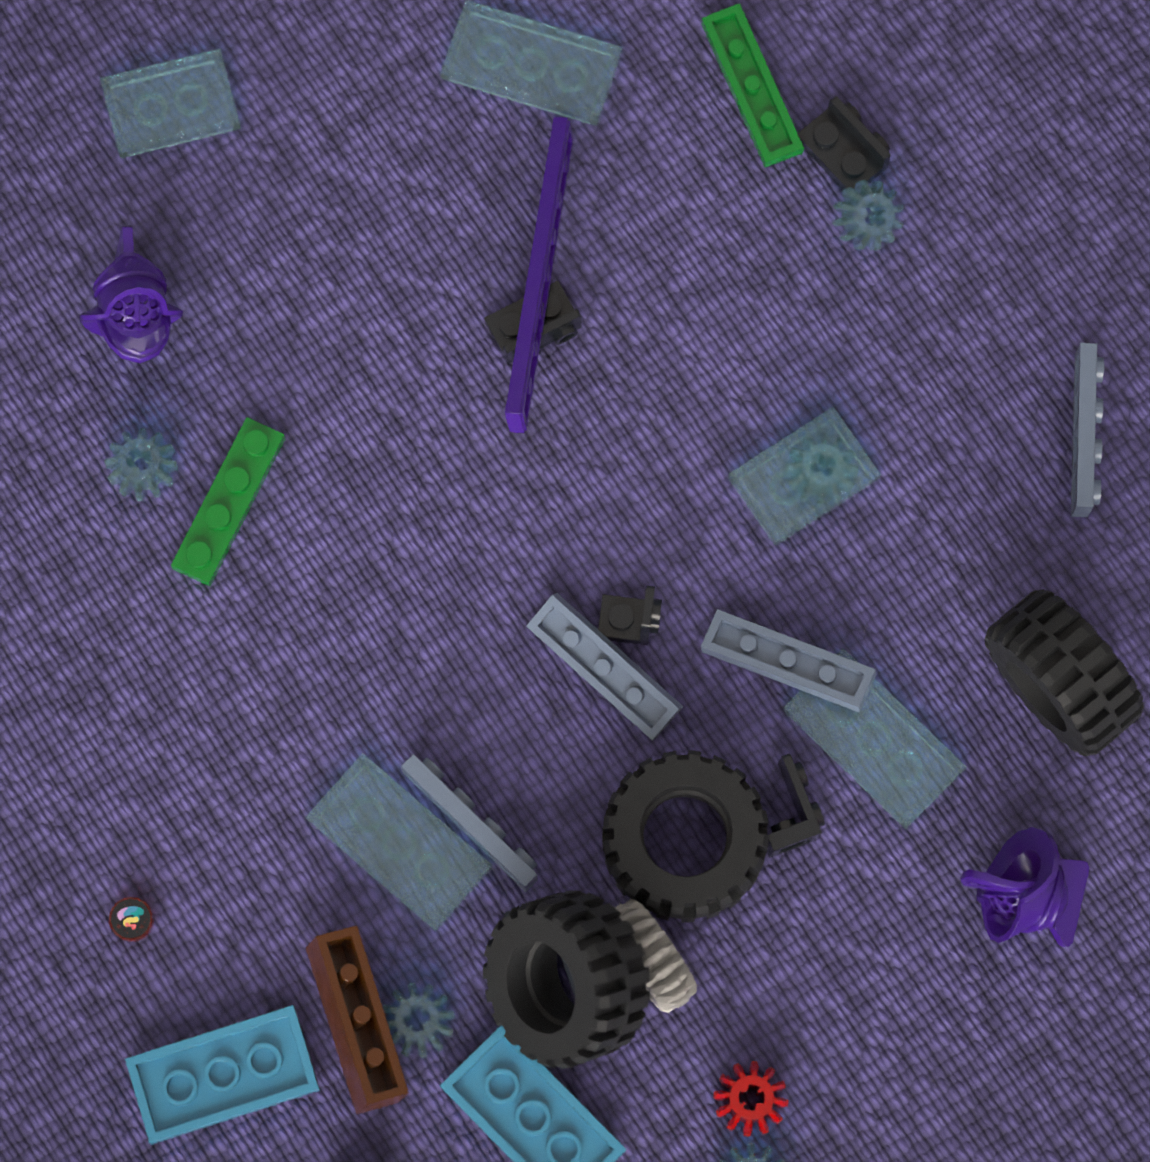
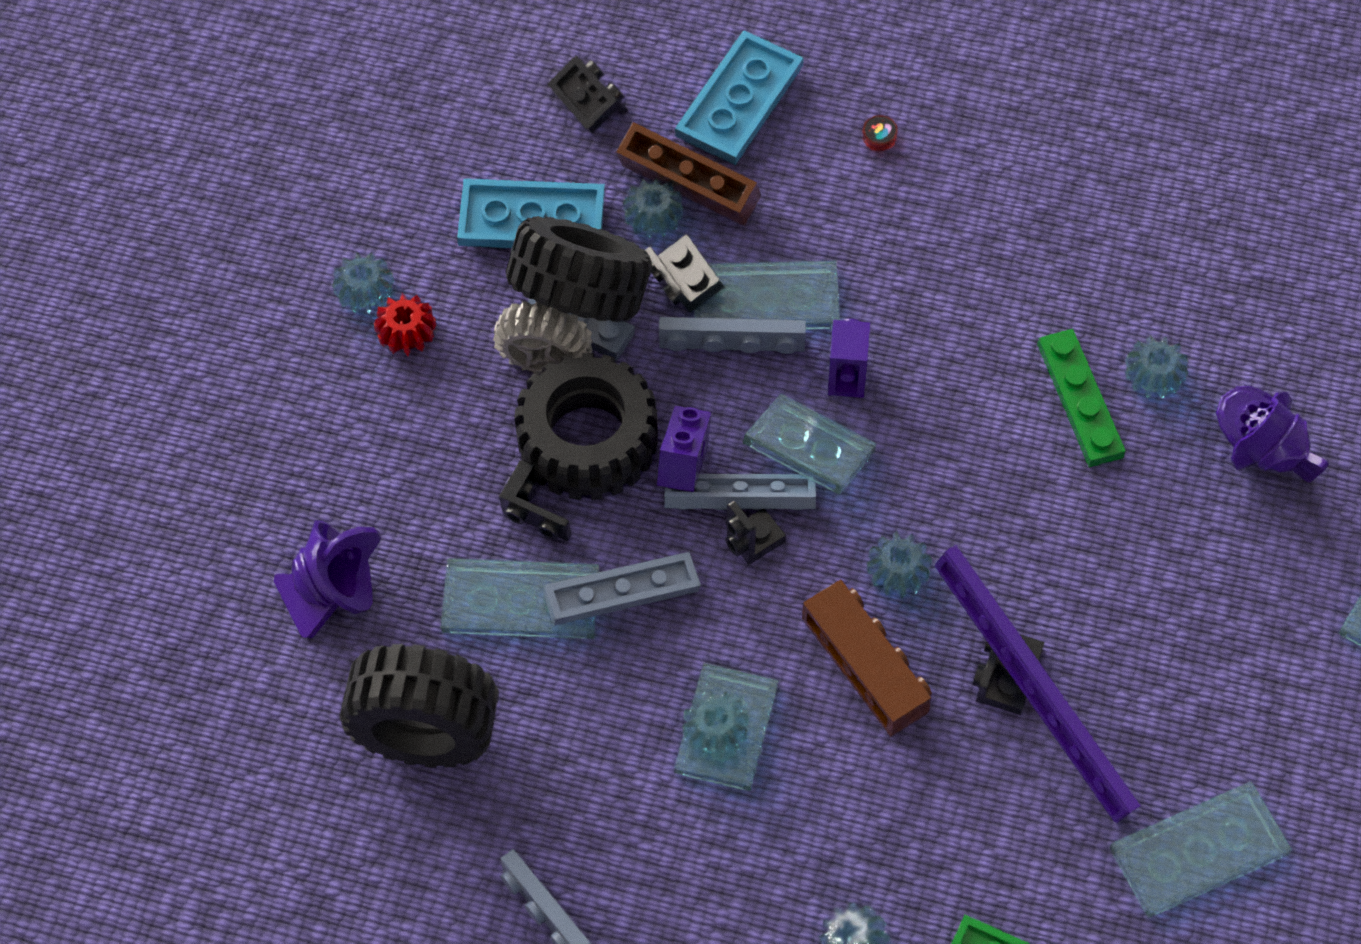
camera: 140 degrees right, 15 degrees down
(399, 696) = (848, 358): none -> dark purple brick
(456, 921) = (686, 273): none -> bracket
(503, 657) = (809, 443): none -> clear light blue tile
(550, 475) = (901, 553): none -> clear light blue gear
(621, 737) = (684, 448): none -> dark purple brick
(640, 428) = (867, 657): none -> reddish brown brick

